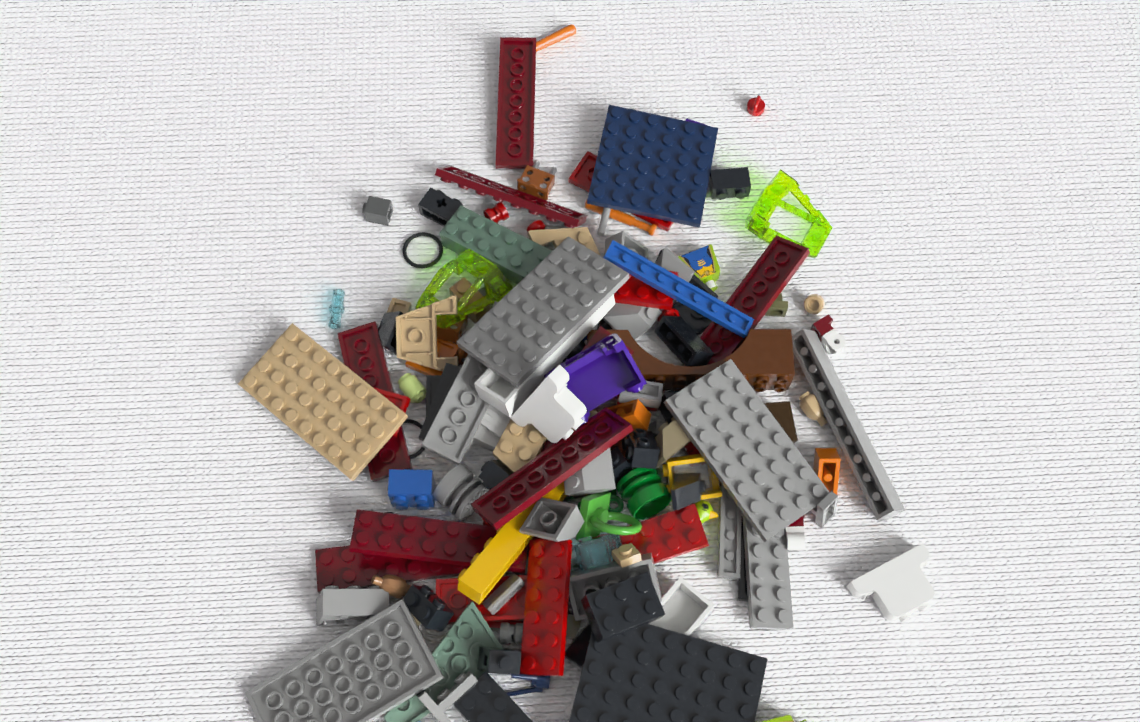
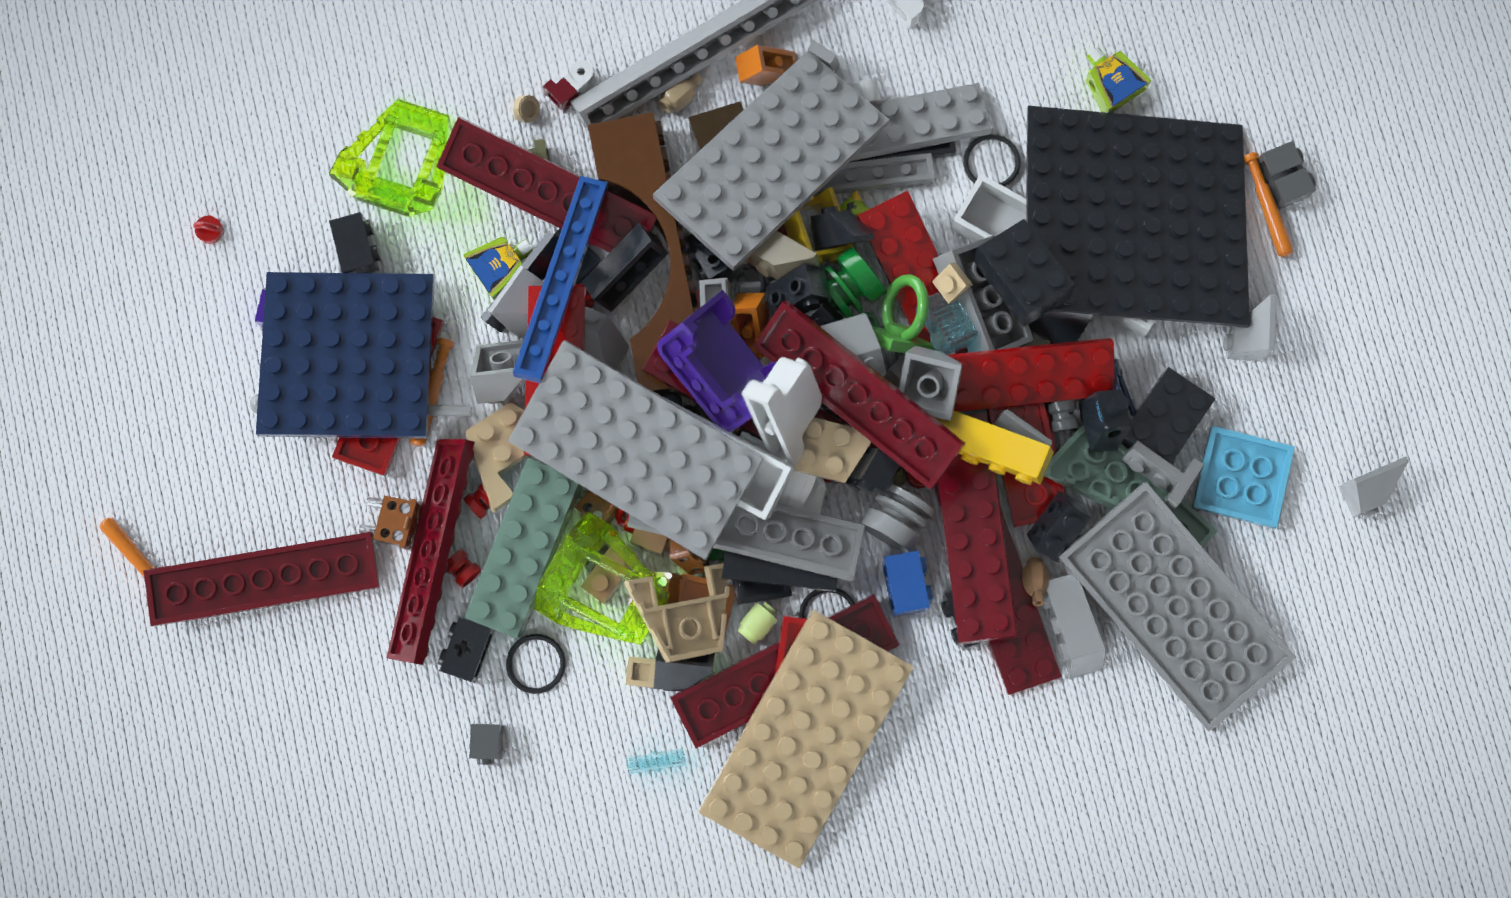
camera: 95 degrees left, 15 degrees up
(733, 607) = (993, 137): none -> black tyre

